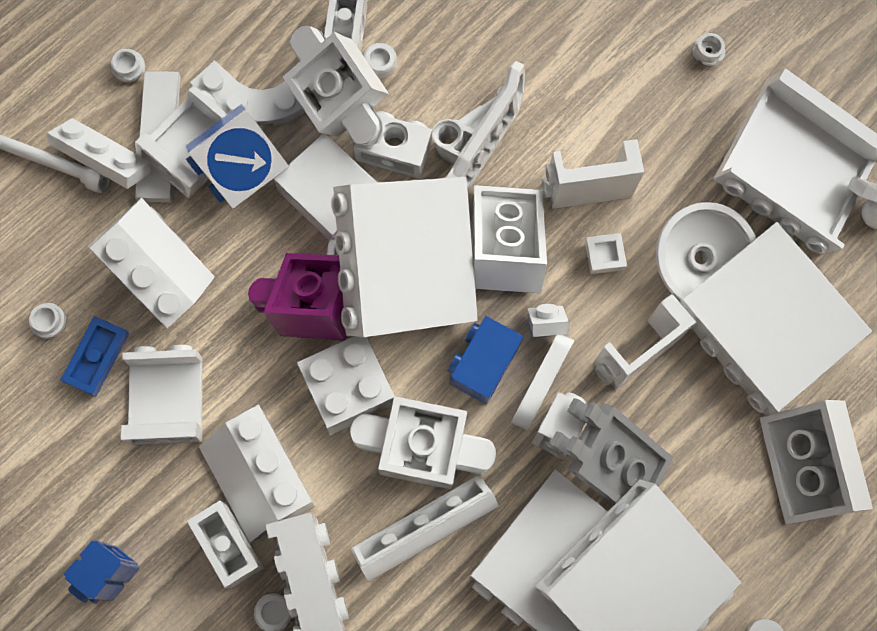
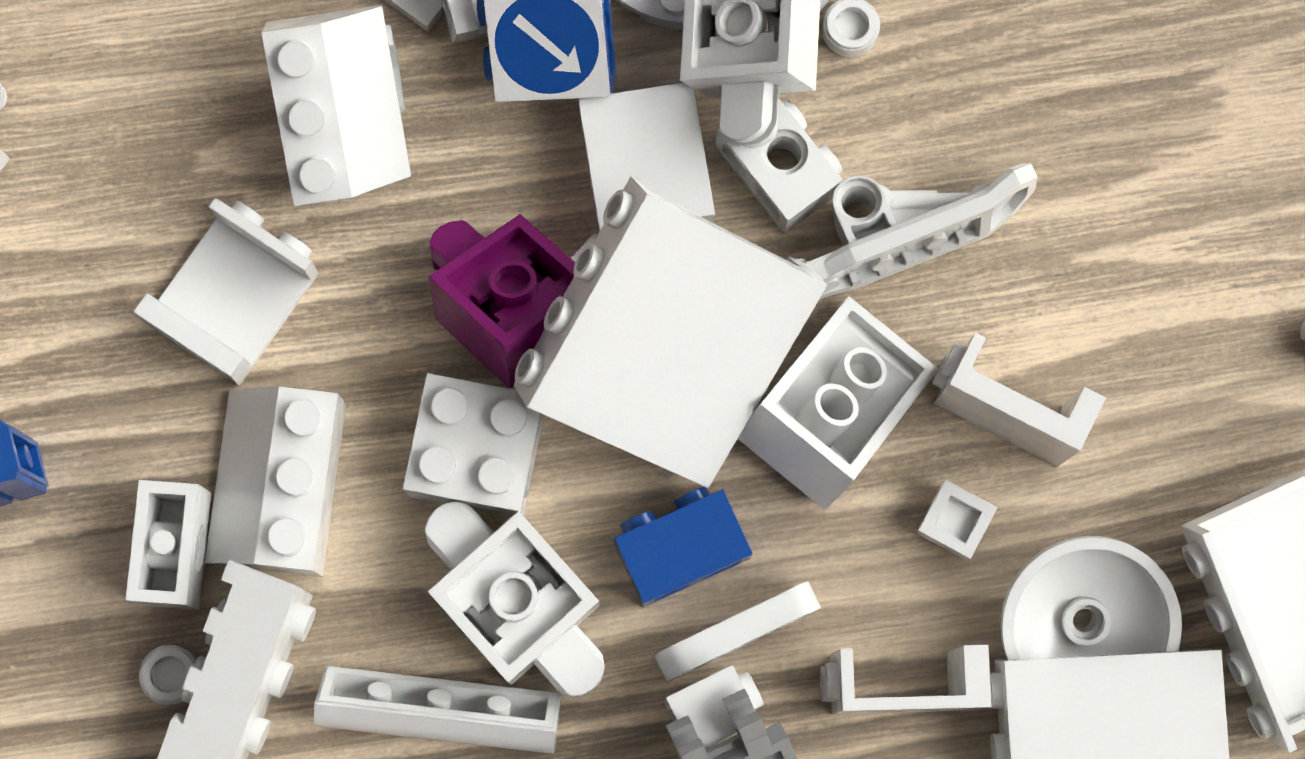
camera: 35 degrees right, 5 degrees up
(47, 320) = (154, 82): white plate -> none
(94, 356) = (180, 174): blue plate -> none
(548, 320) = (806, 555): white plate -> none

